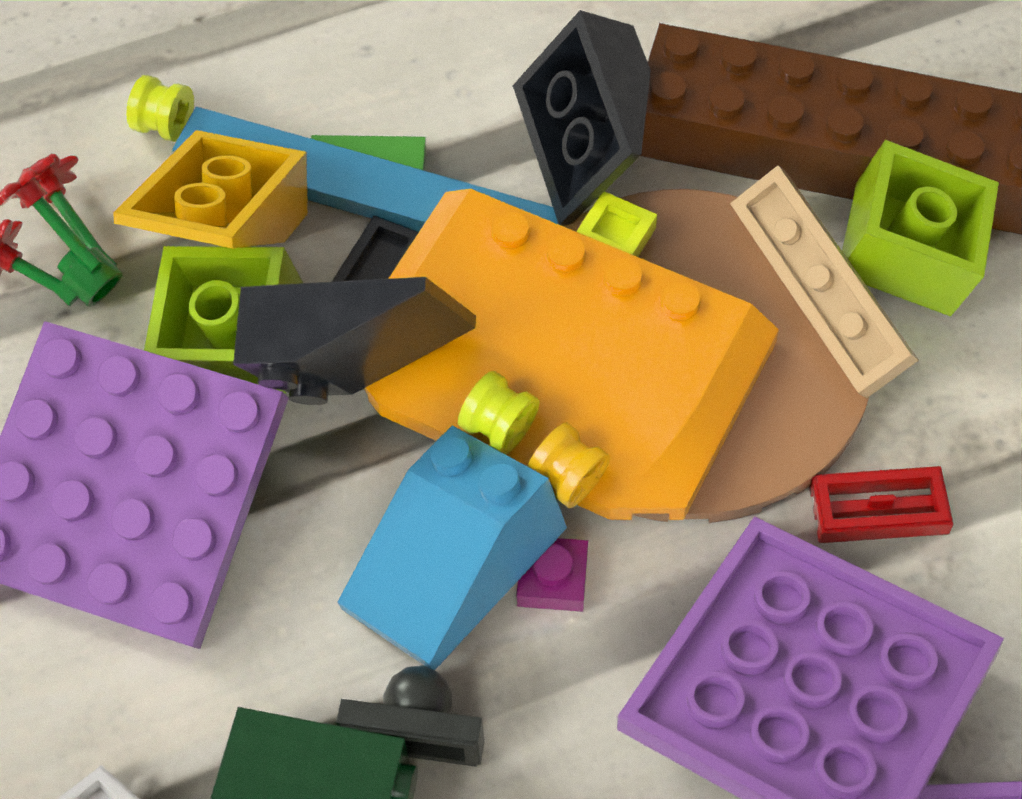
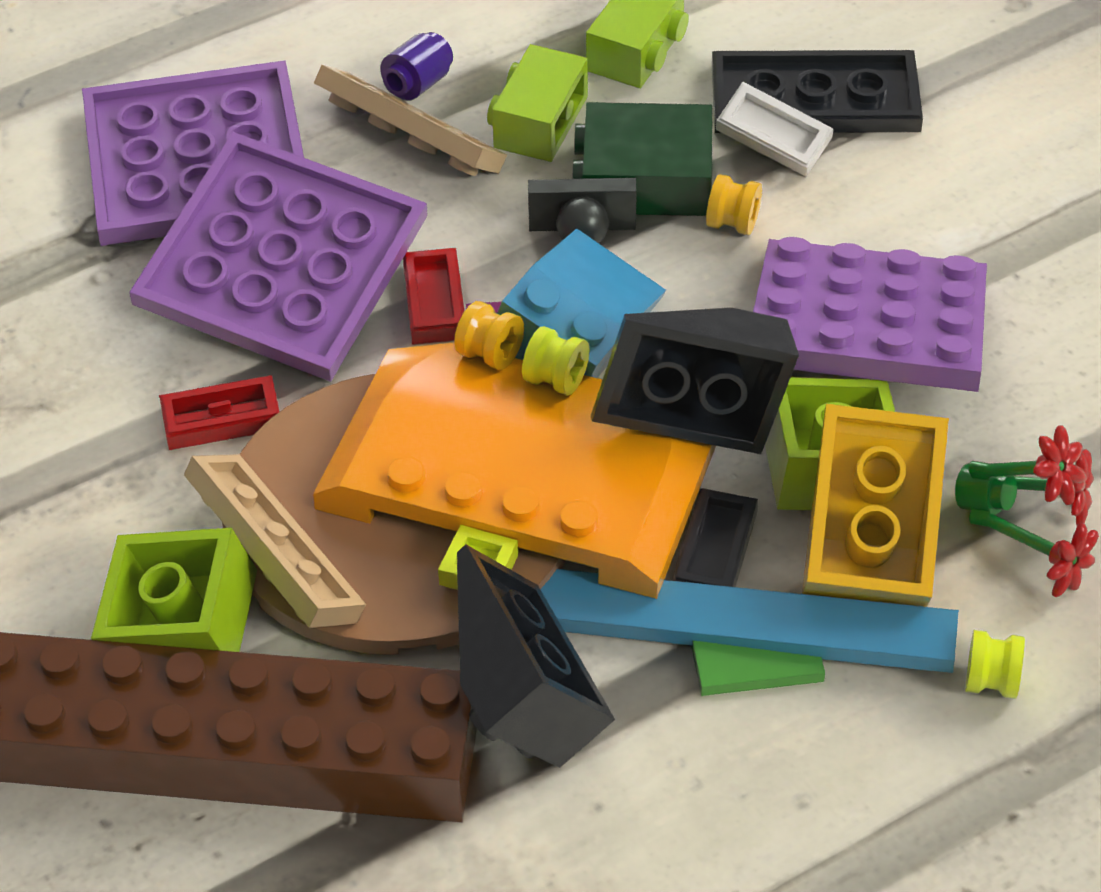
camera: 170 degrees right, 10 degrees down
(213, 696) = (734, 204): none -> yellow wheel
(617, 635) = (433, 294): none -> red tile

